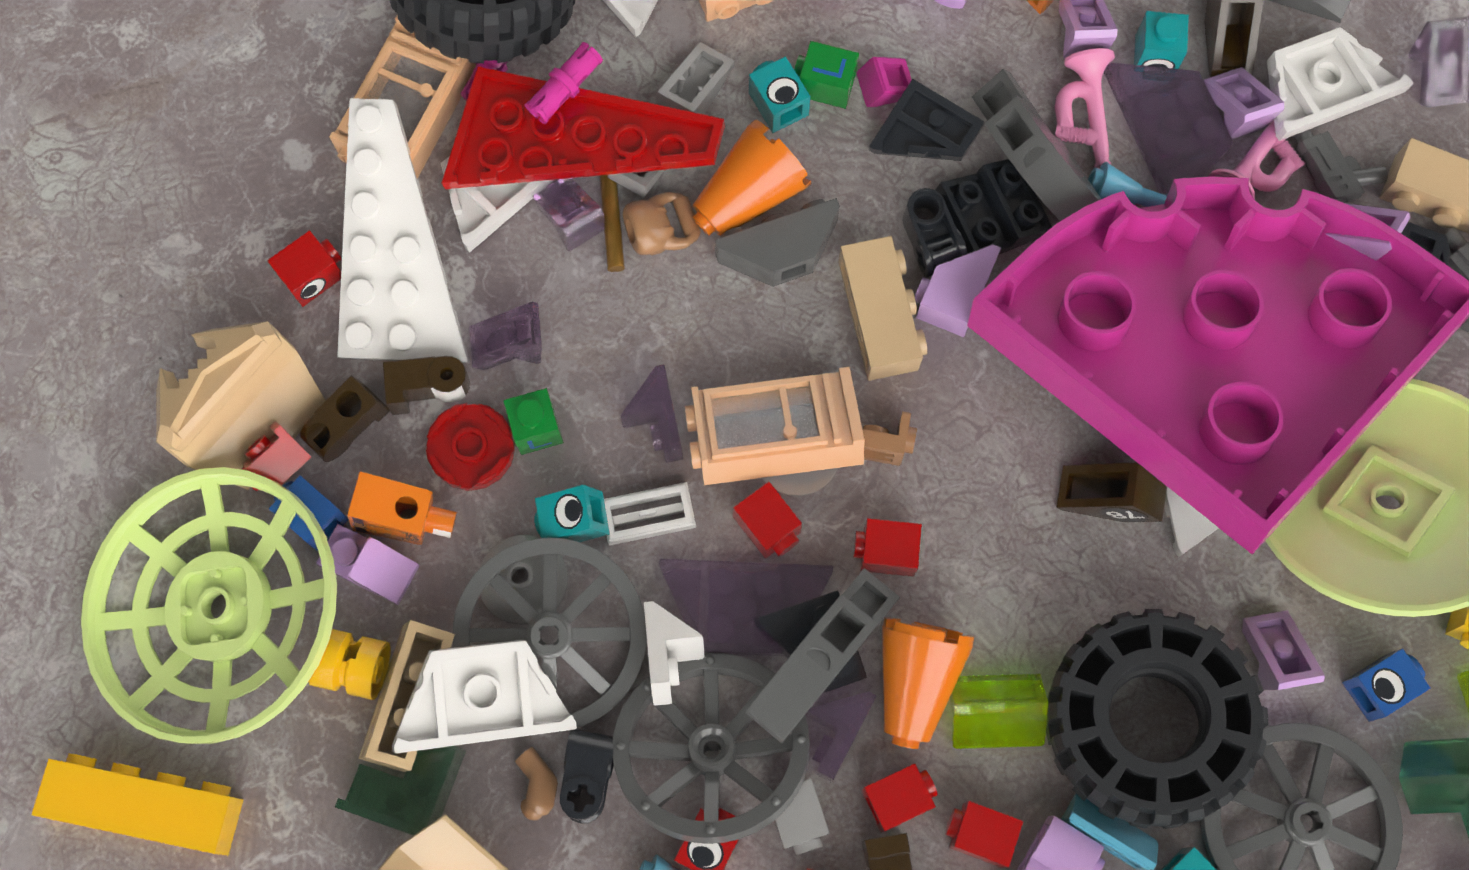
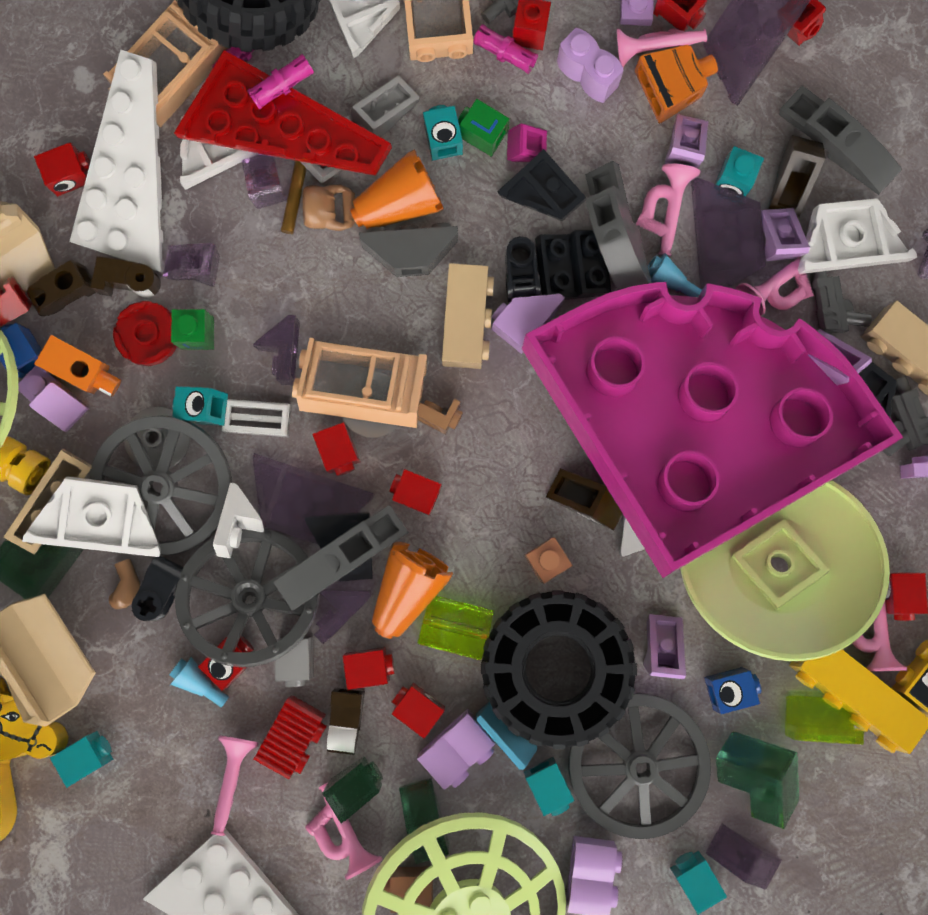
camera: 15 degrees right, 10 degrees up
(1090, 584) = (548, 560): none -> nougat brick

